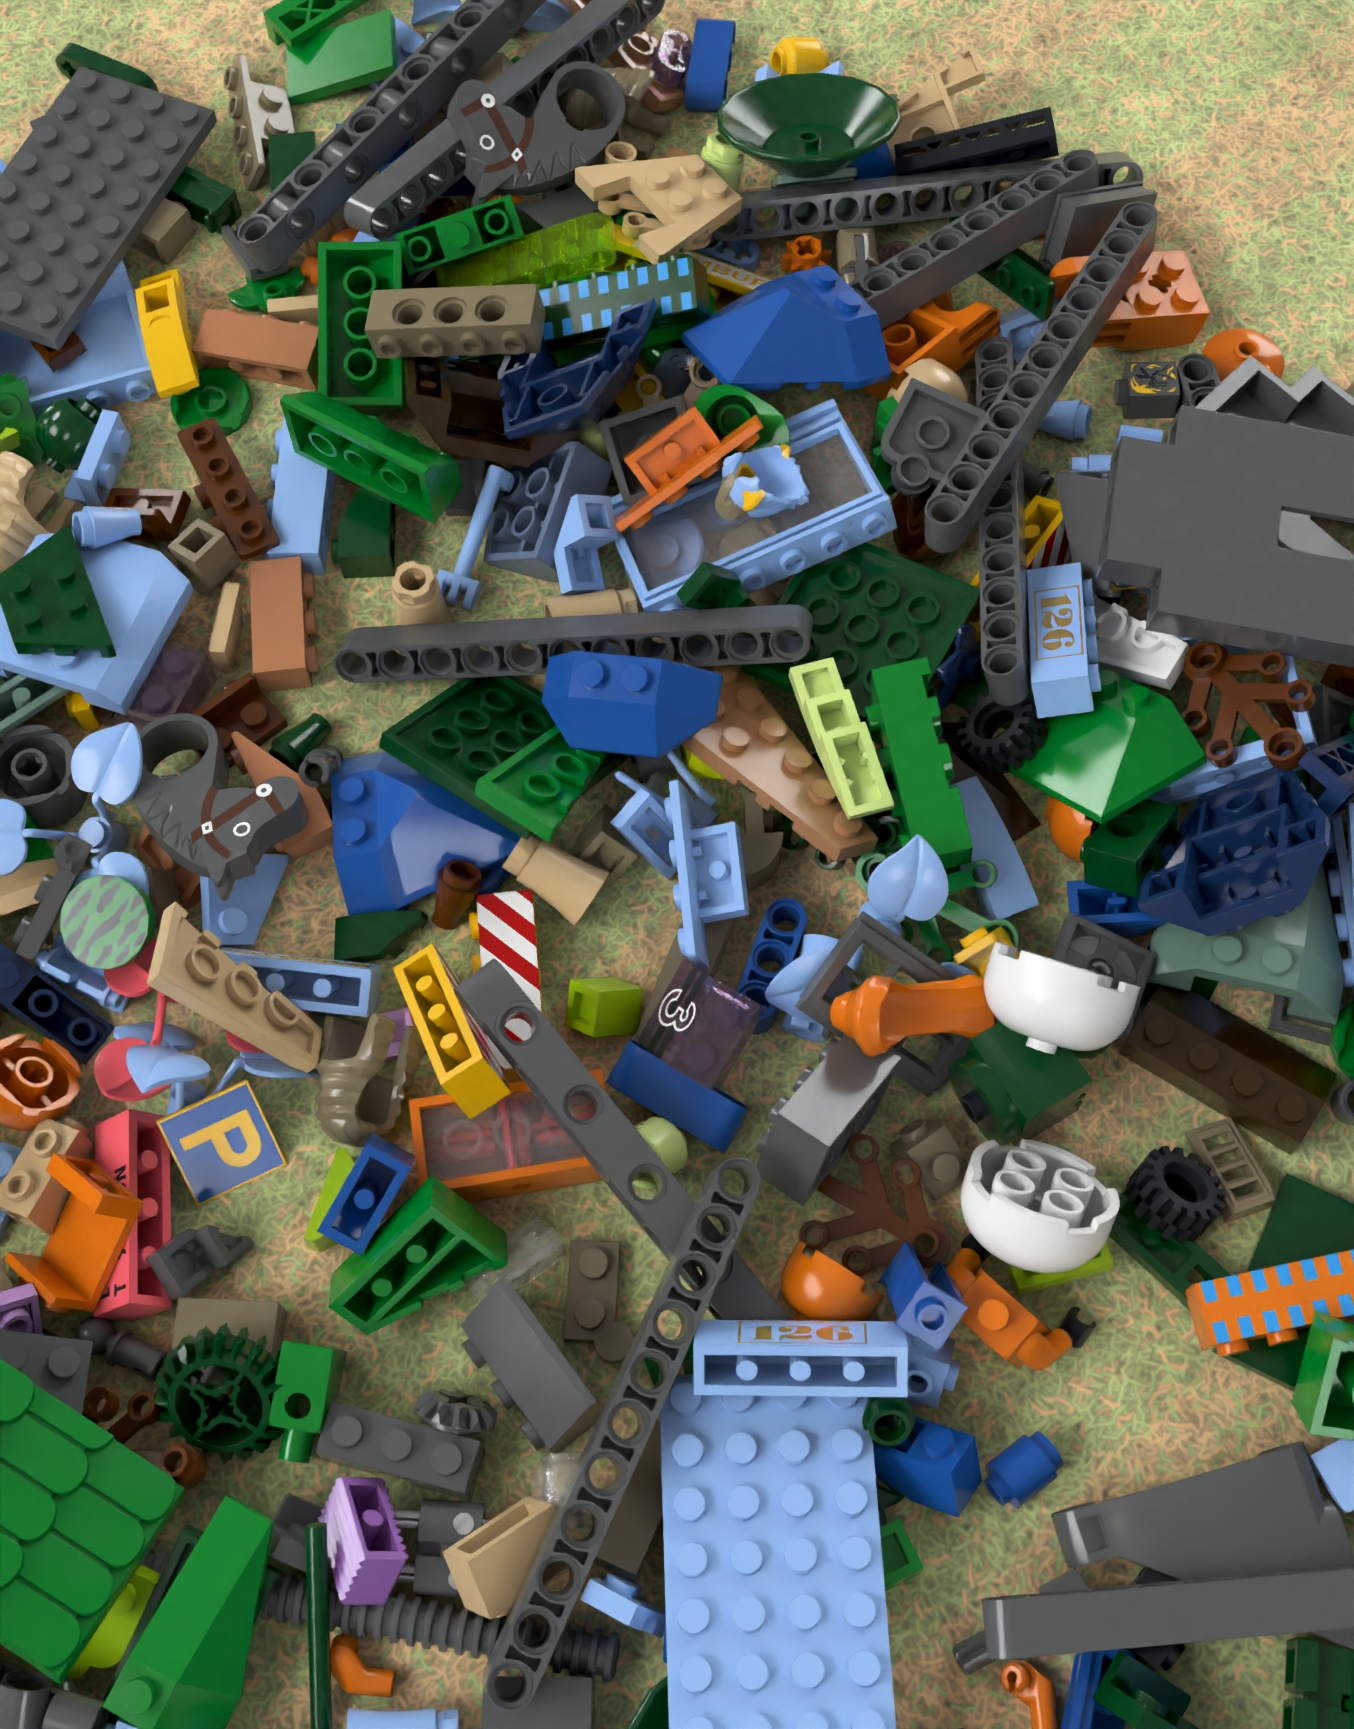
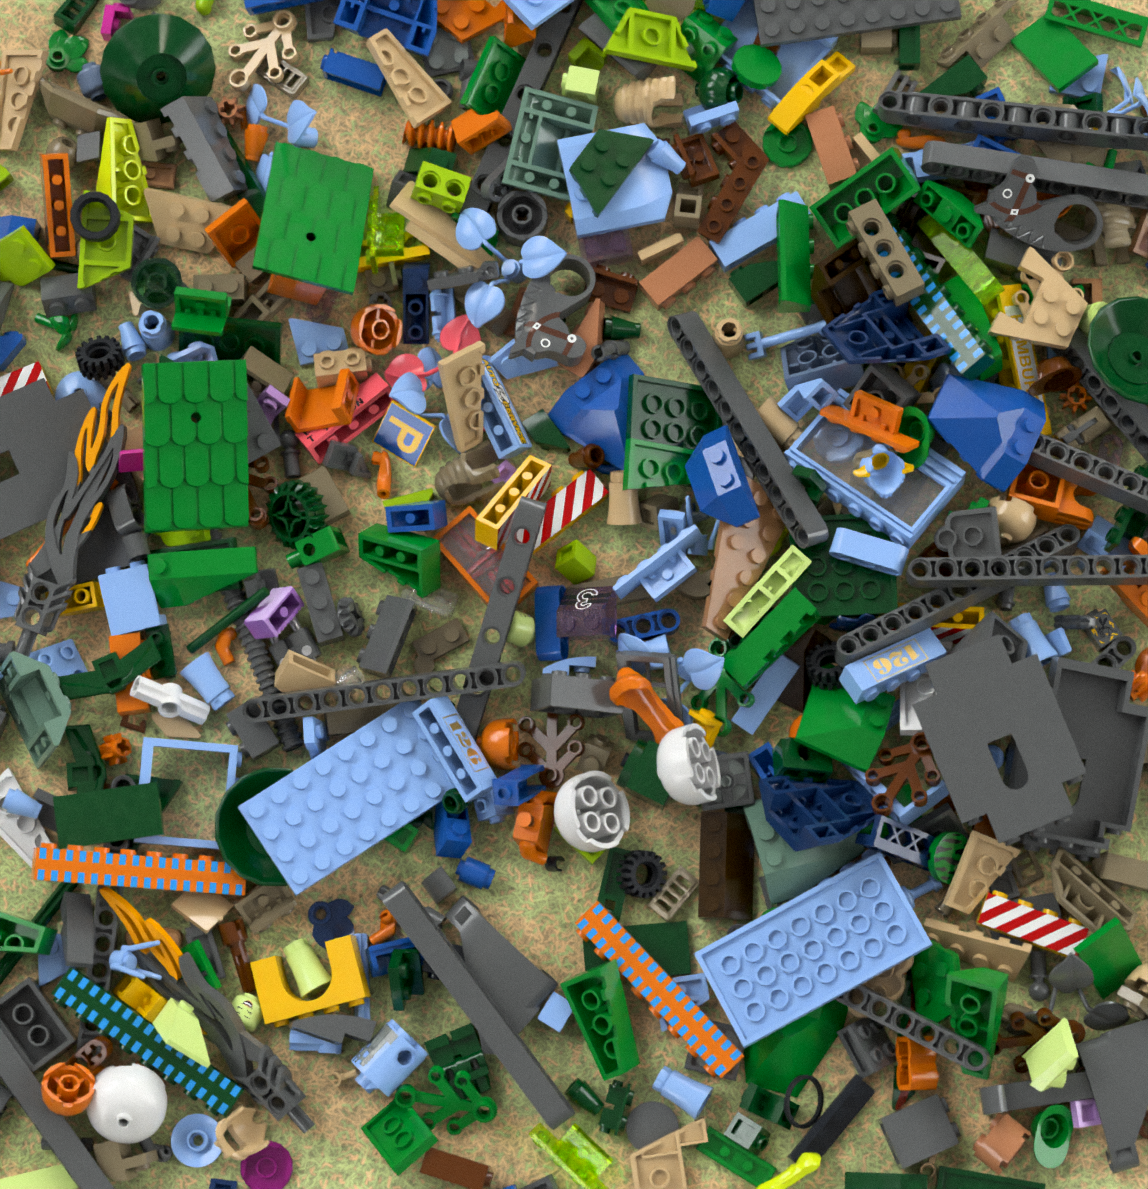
camera: 60 degrees right, 15 degrees up
(80, 367) = (756, 66): none -> green tile
(107, 921) = (467, 311): tile -> none
(159, 465) = (732, 143): none -> reddish brown bracket
(263, 1216) = (384, 476): none -> orange arm
(765, 244) = (1054, 376): none -> reddish brown piece
(769, 1091) = (580, 665): none -> light blue slope
(868, 575) = (869, 551): none -> light blue beam
(1010, 1545) = (439, 885): none -> dark grey brick
(1122, 407) = (1075, 622): none -> dark grey axle

